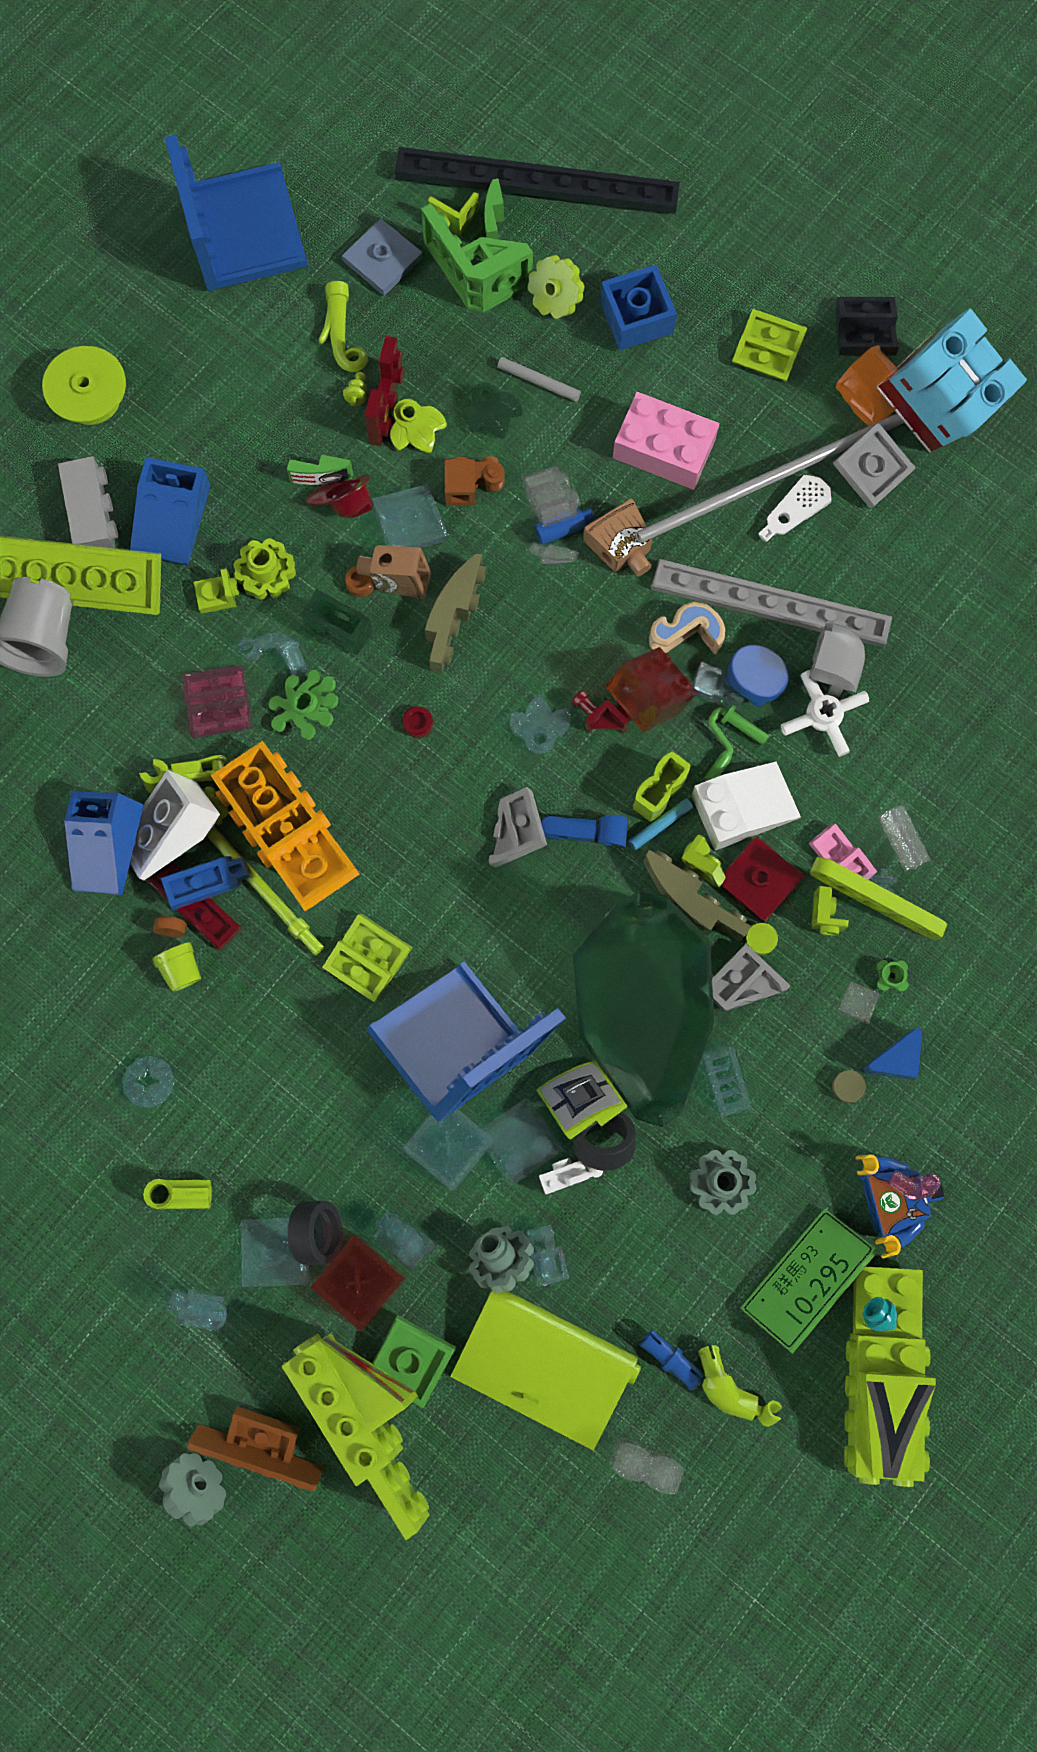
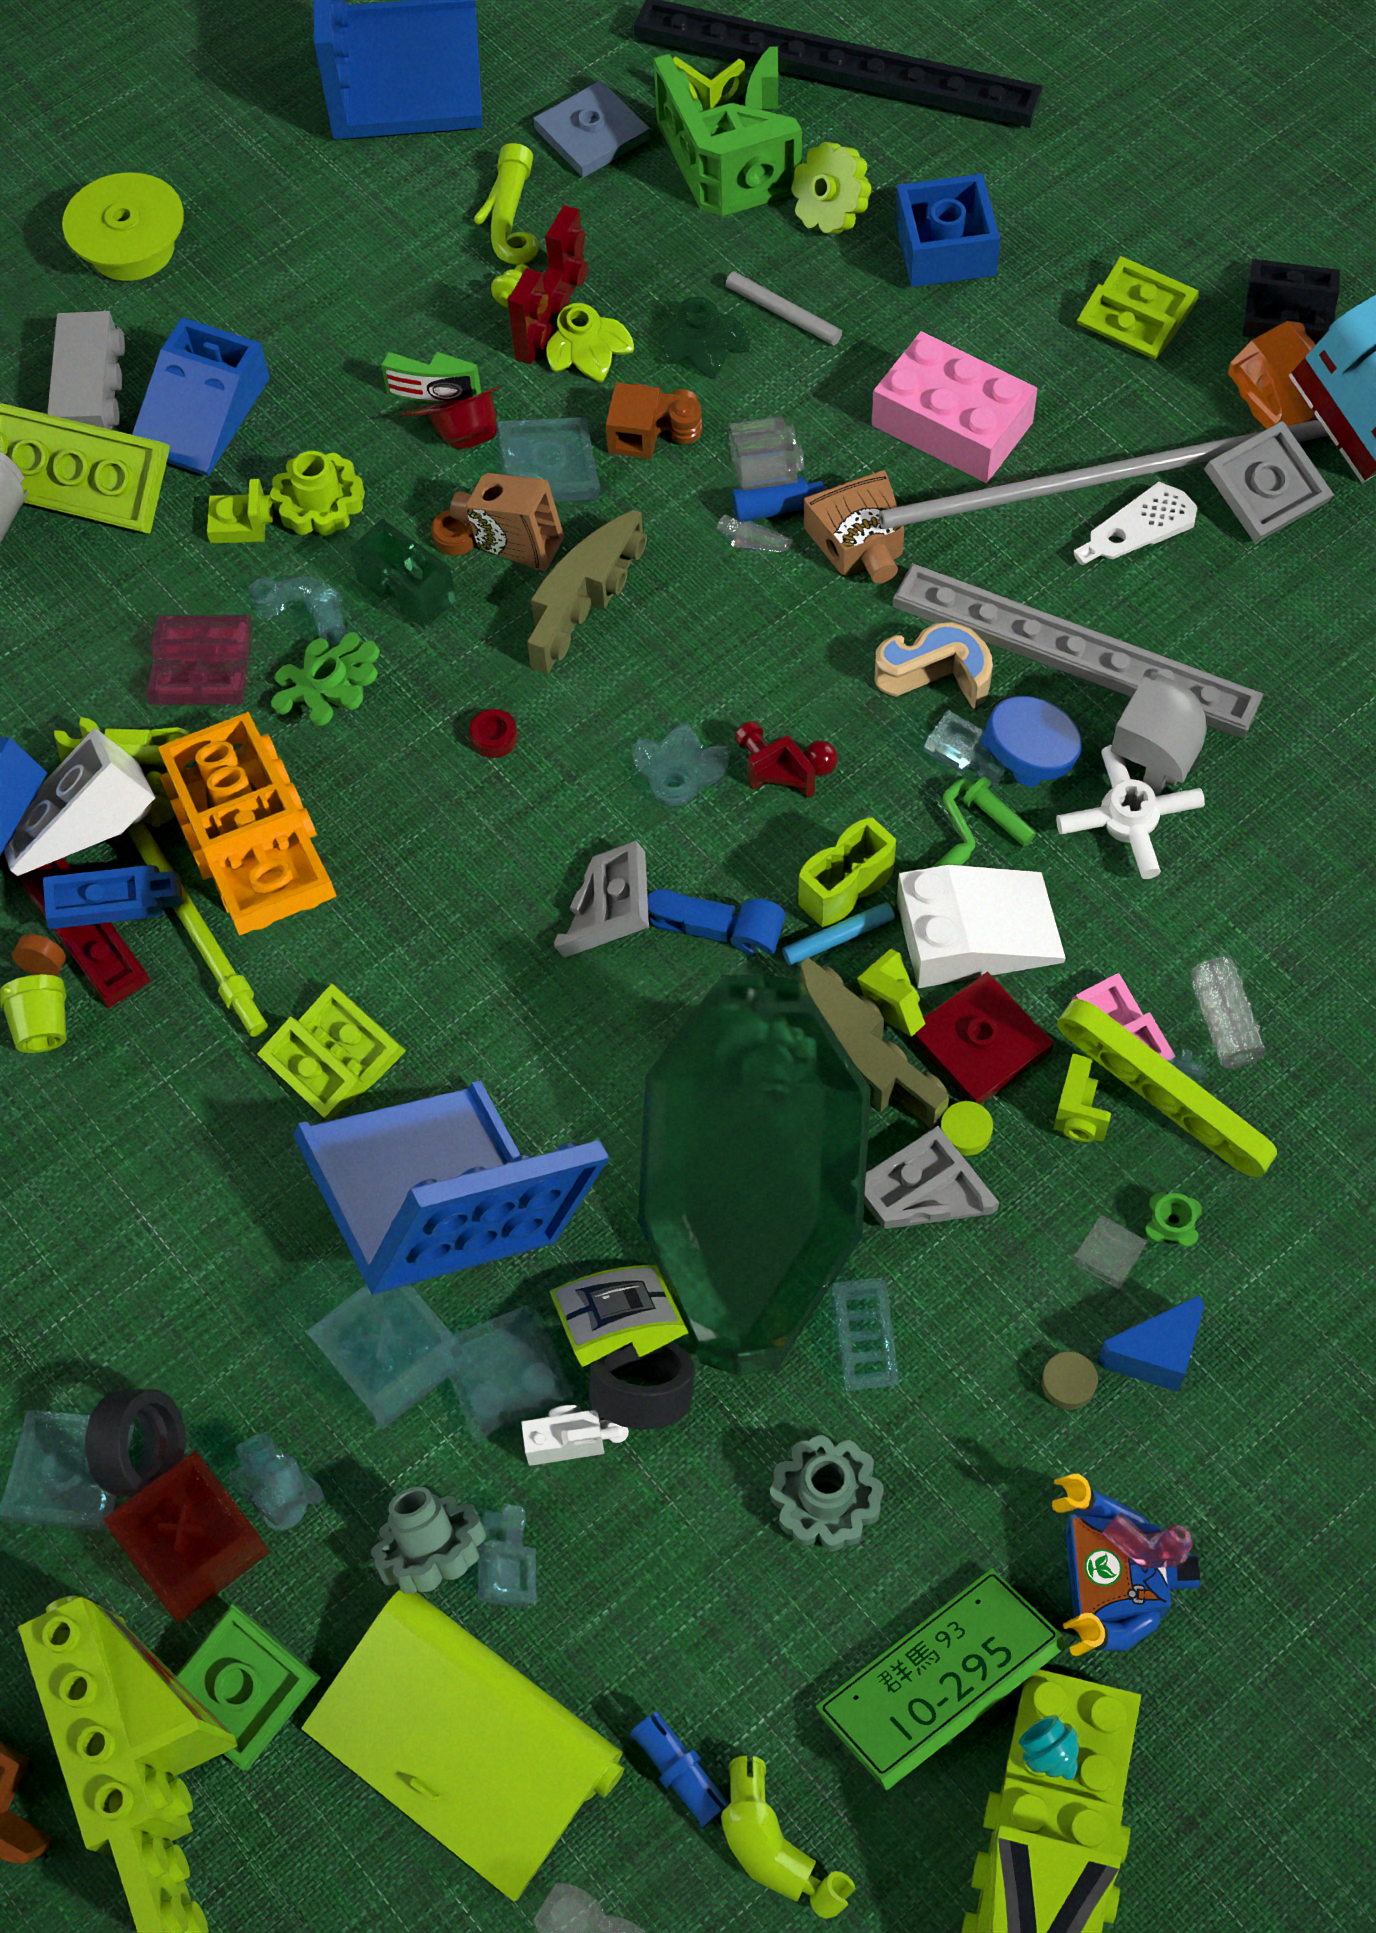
camera: 15 degrees right, 15 degrees down
(651, 689) = (859, 729): clear red brick -> none

